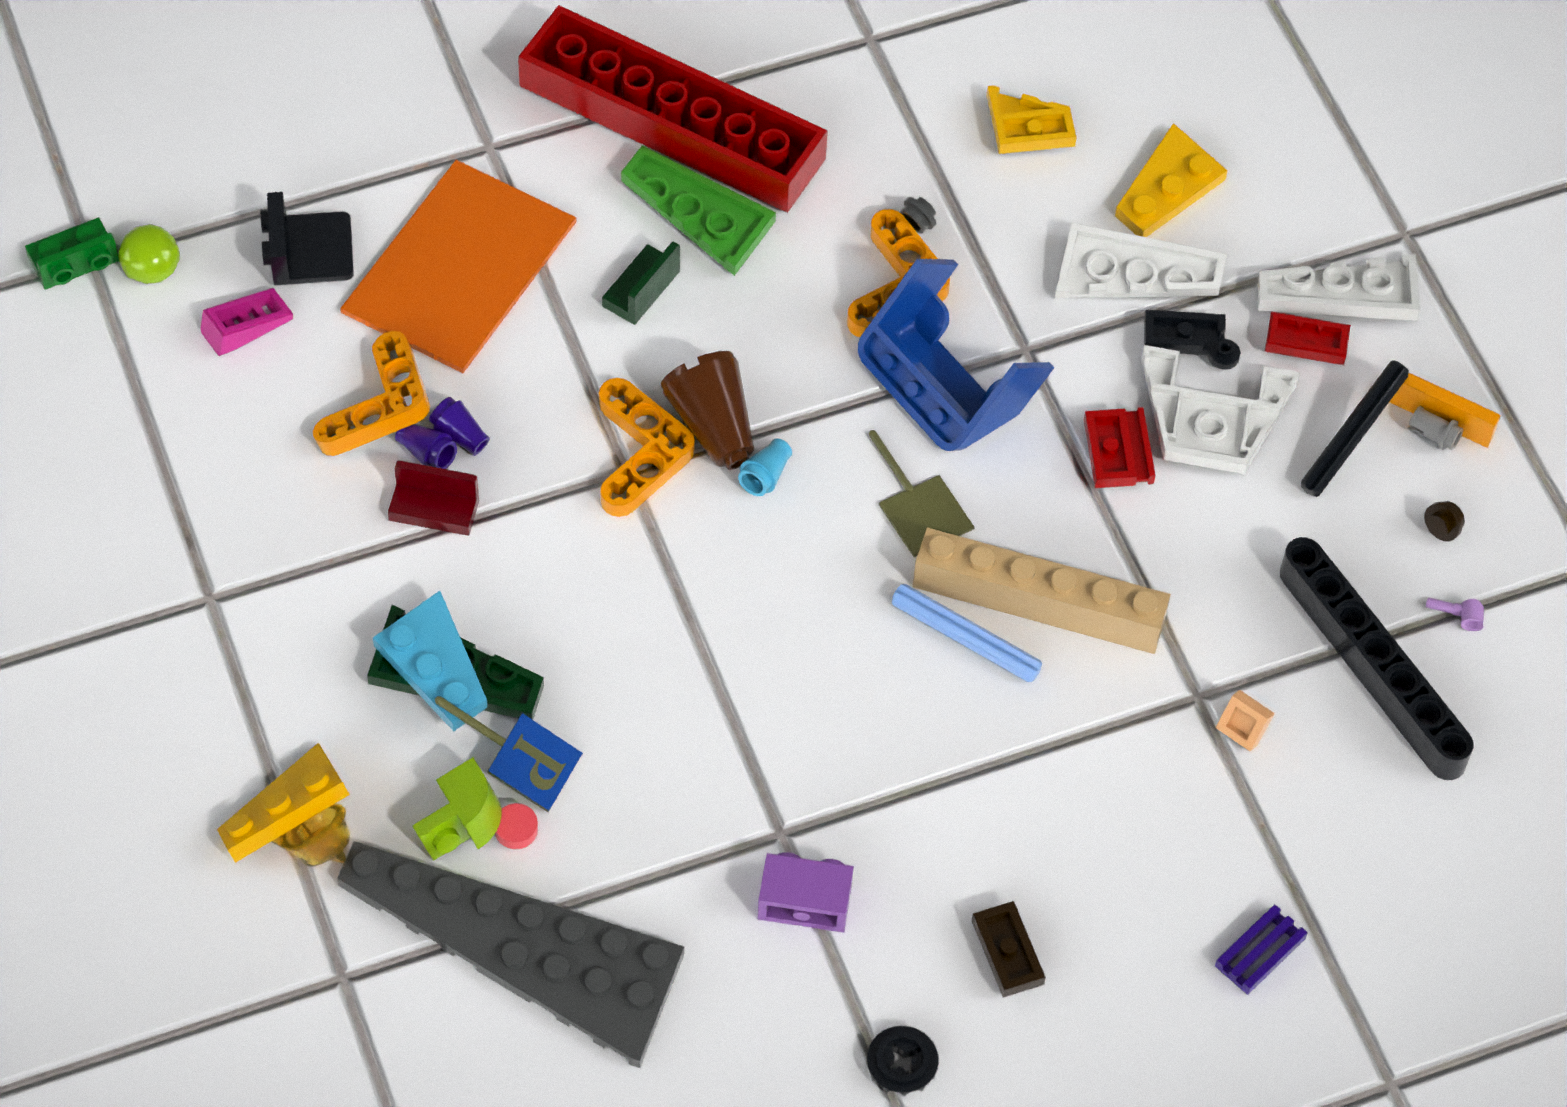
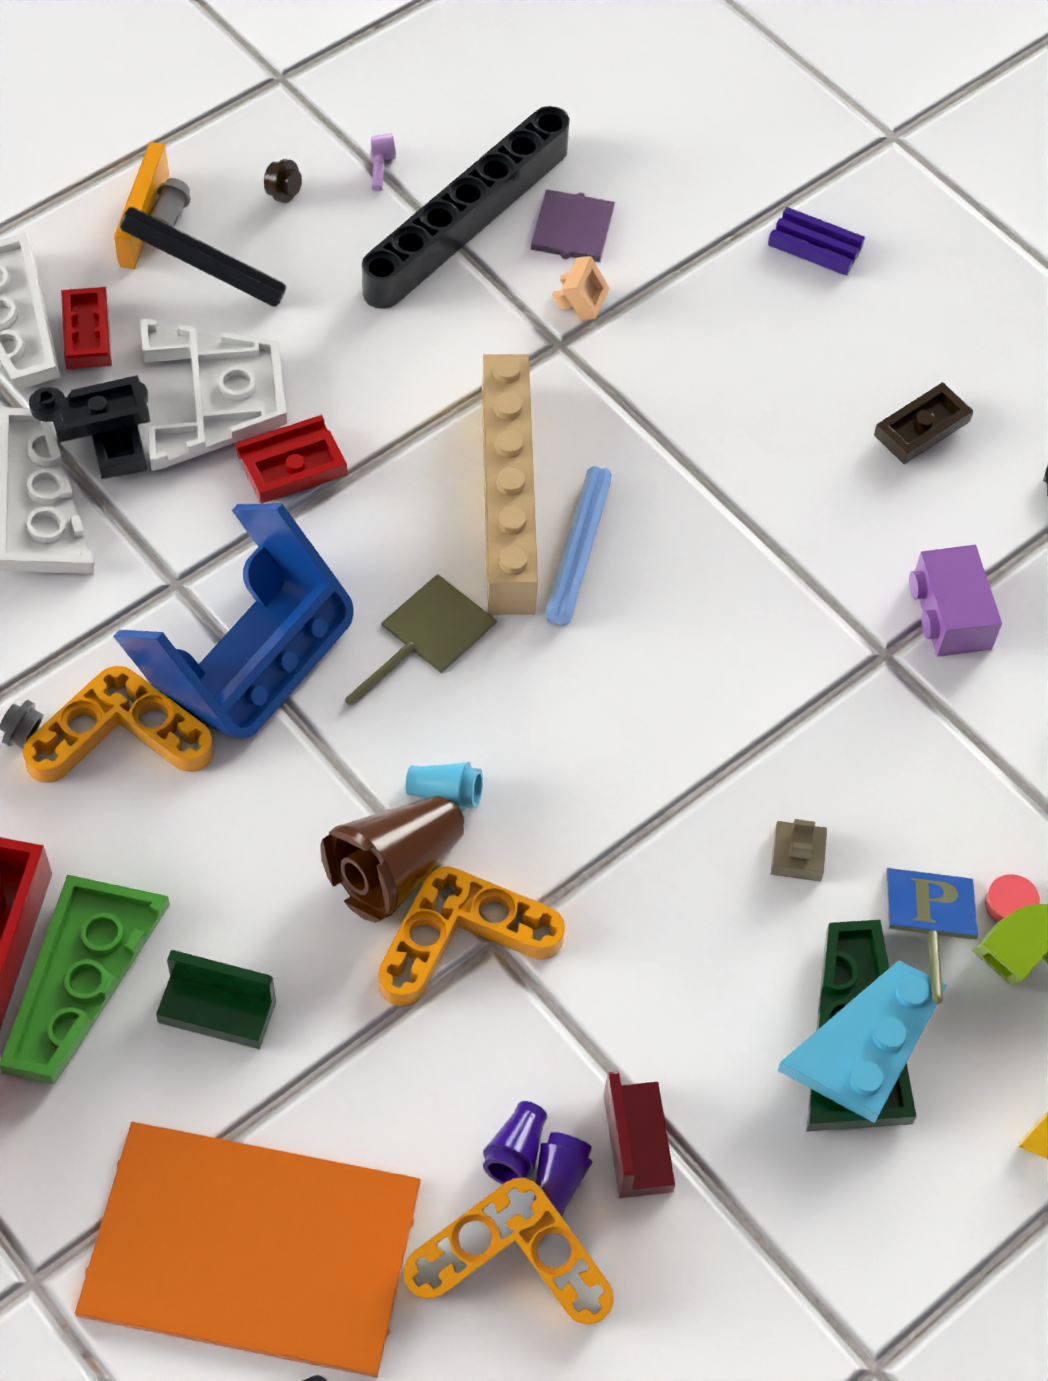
camera: 110 degrees left, 0 degrees up
(619, 692) = (799, 850): none -> dark tan tile
(1199, 308) = (91, 408): none -> black hinge
(1339, 749) = (572, 225): none -> clear purple piece

